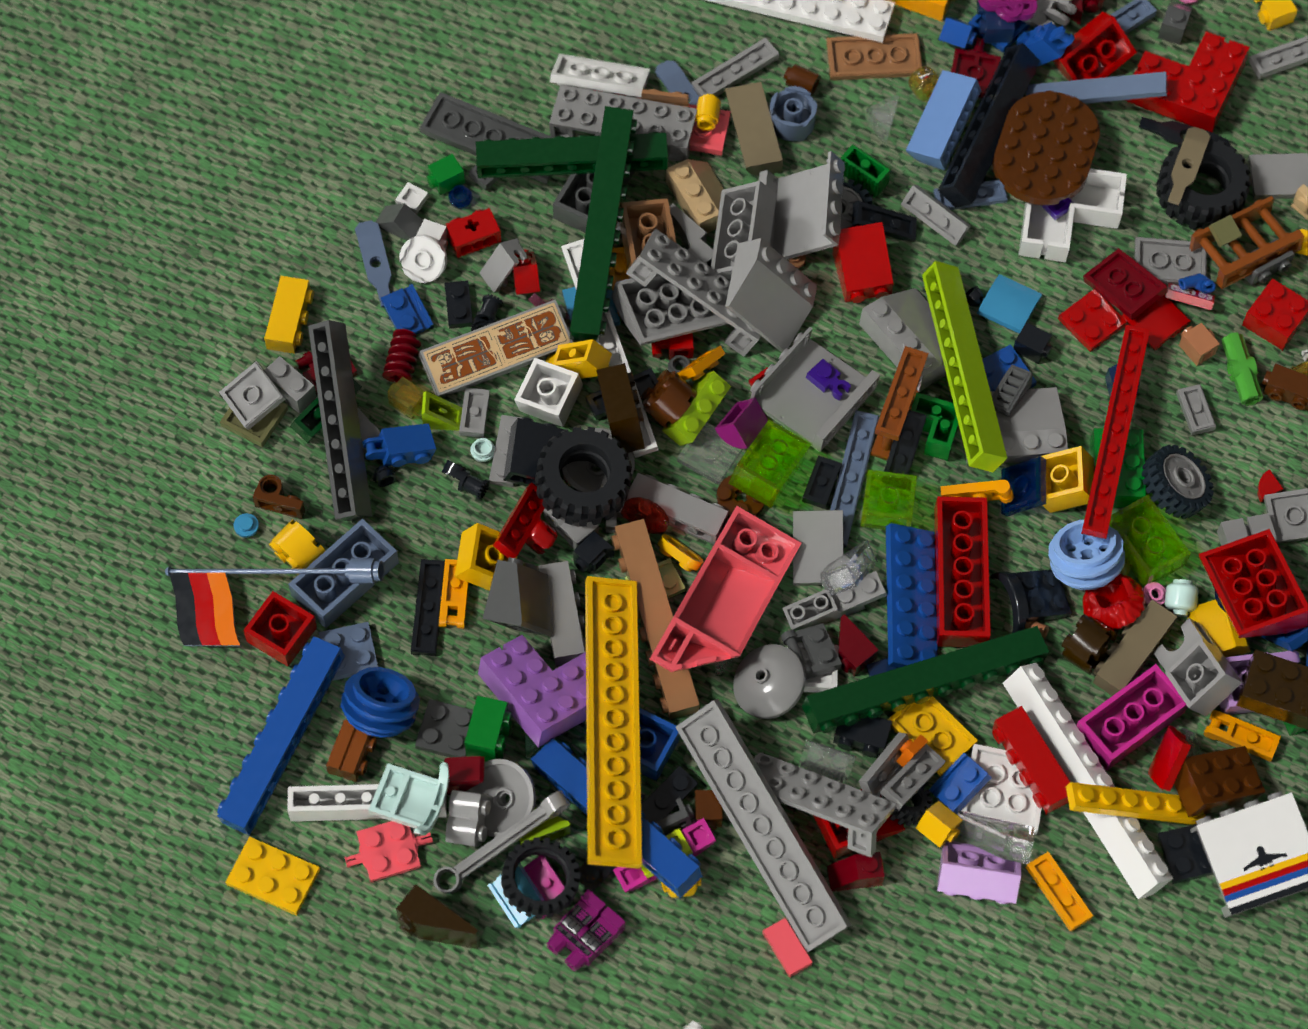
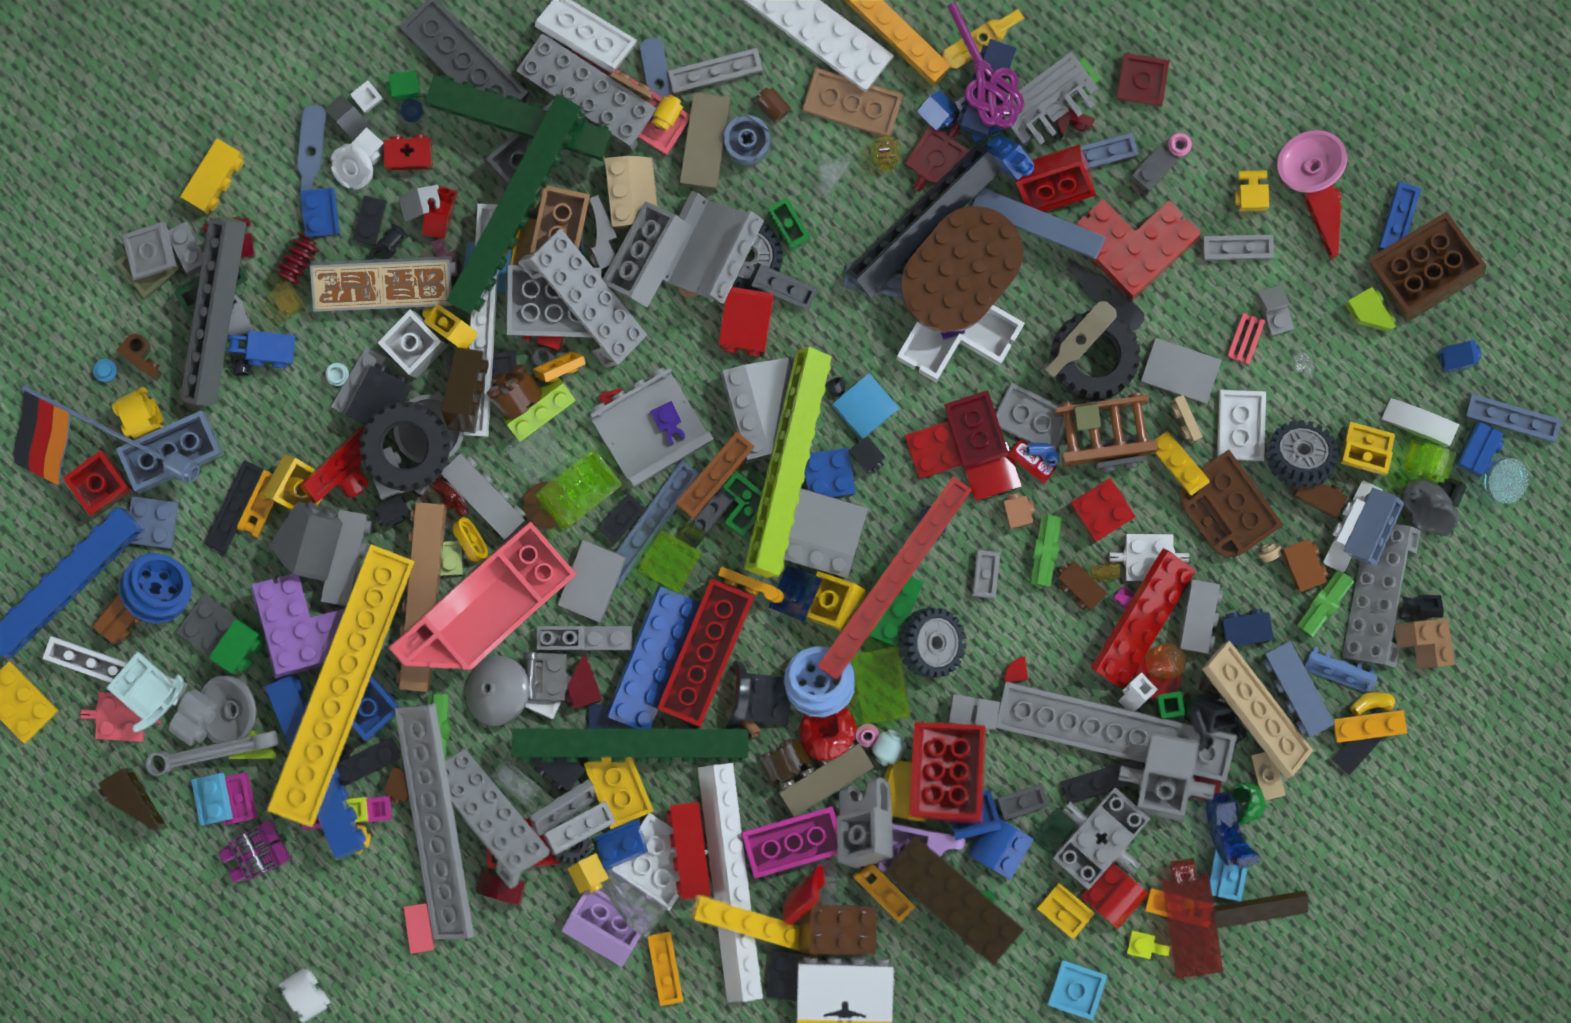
camera: 25 degrees right, 20 degrees up
(440, 413) = (312, 326): lime slope -> none
(465, 772) = (202, 678): dark red slope -> none
(467, 481) = (306, 390): black connector -> none
(474, 412) = (343, 335): light grey plate -> none
(528, 905) = (259, 797): black tyre -> none
(678, 820) = (370, 788): dark grey bracket -> none
(742, 424) = (572, 439): magenta brick -> none
(769, 293) = (640, 328): light grey slope -> none
(848, 569) = (605, 617): clear slope -> none
(910, 749) = (589, 802): orange plate -> none
(935, 215) = (836, 292): light grey plate -> none
(944, 119) = (884, 199): medium blue brick -> none
(1016, 377) = (824, 488): dark grey slope -> none

